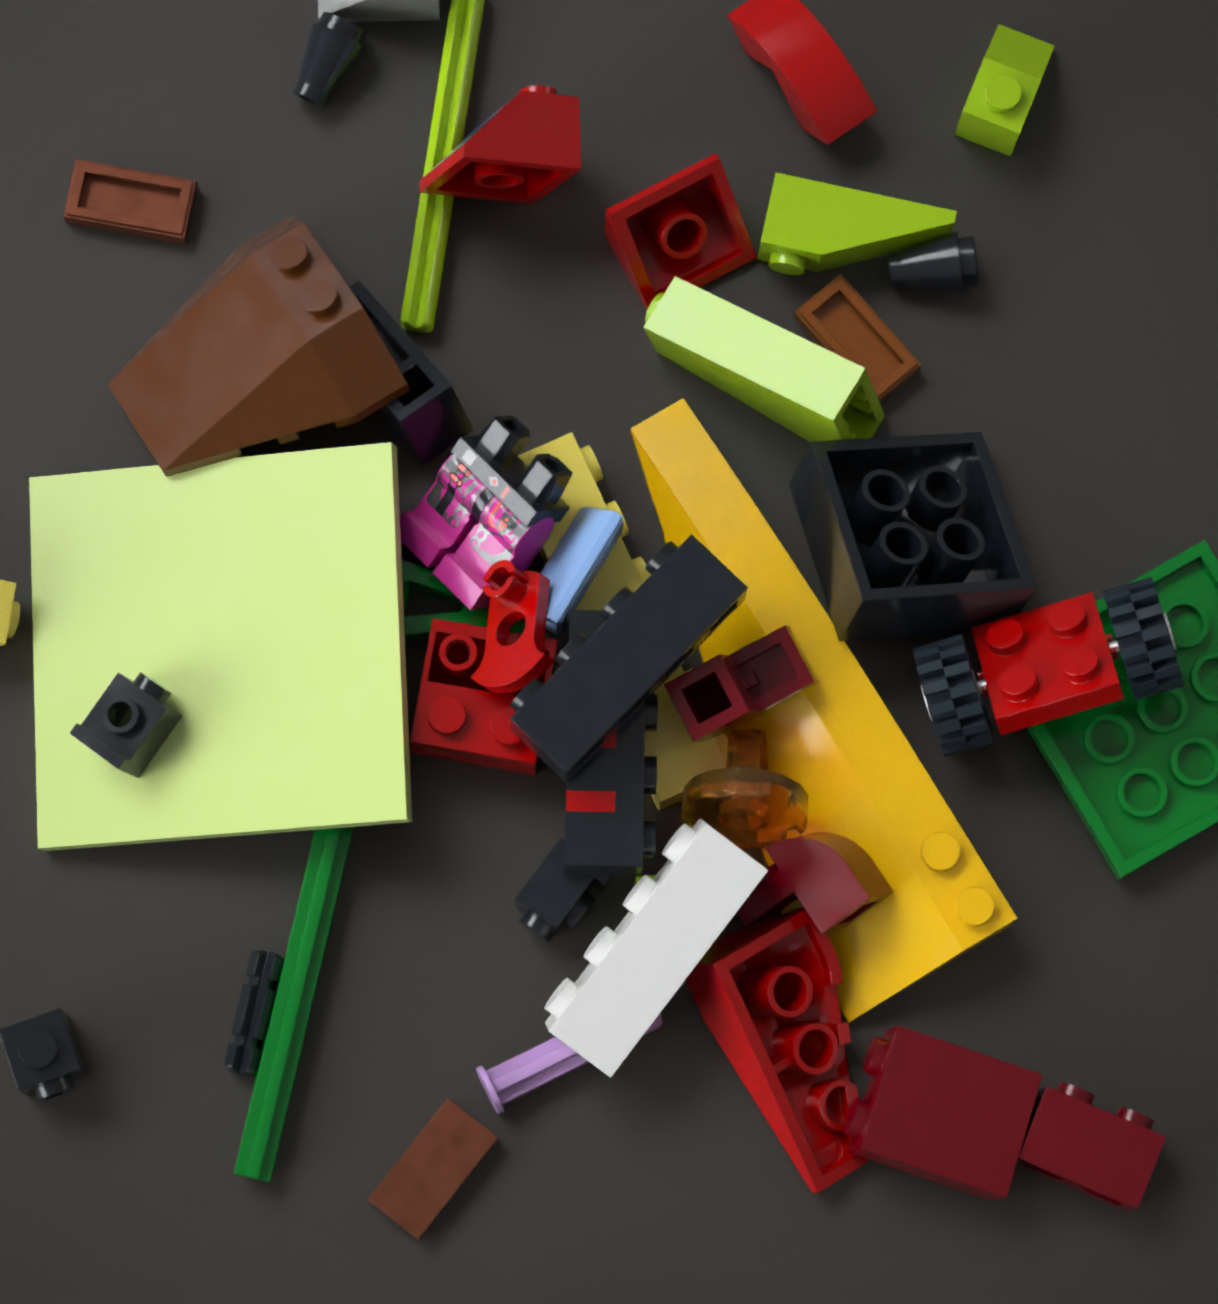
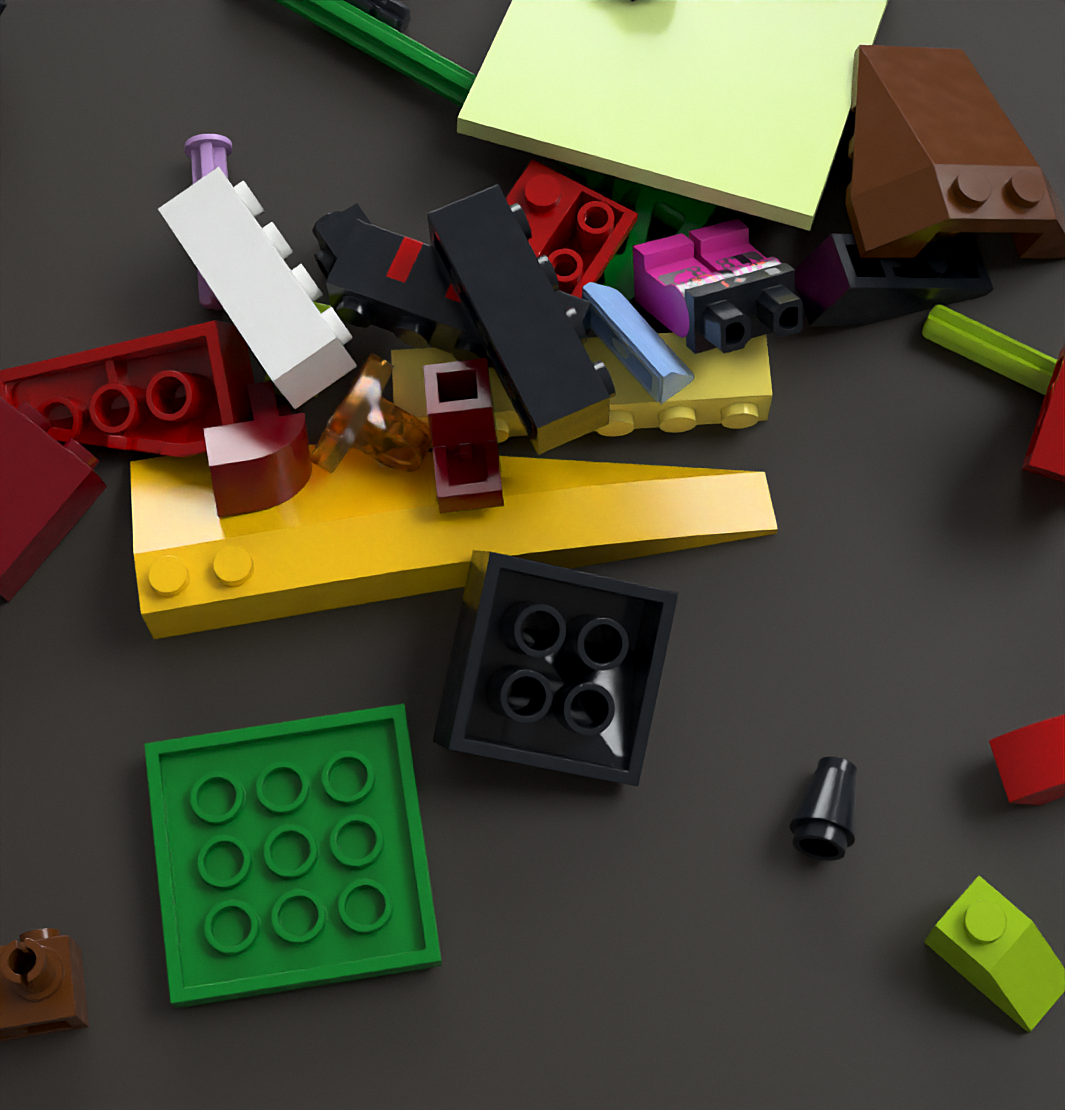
camera: 120 degrees right, 10 degrees down
(433, 1169) = (165, 89): copper tile -> none
(514, 597) = (611, 270): red piece -> none
(679, 229) = (943, 573): red slope -> none
(763, 365) = (772, 599): slope -> none
(833, 226) = (901, 717): lime slope -> none
(850, 328) = (777, 710): dark orange tile -> none
(1047, 665) = (367, 737): plate -> none

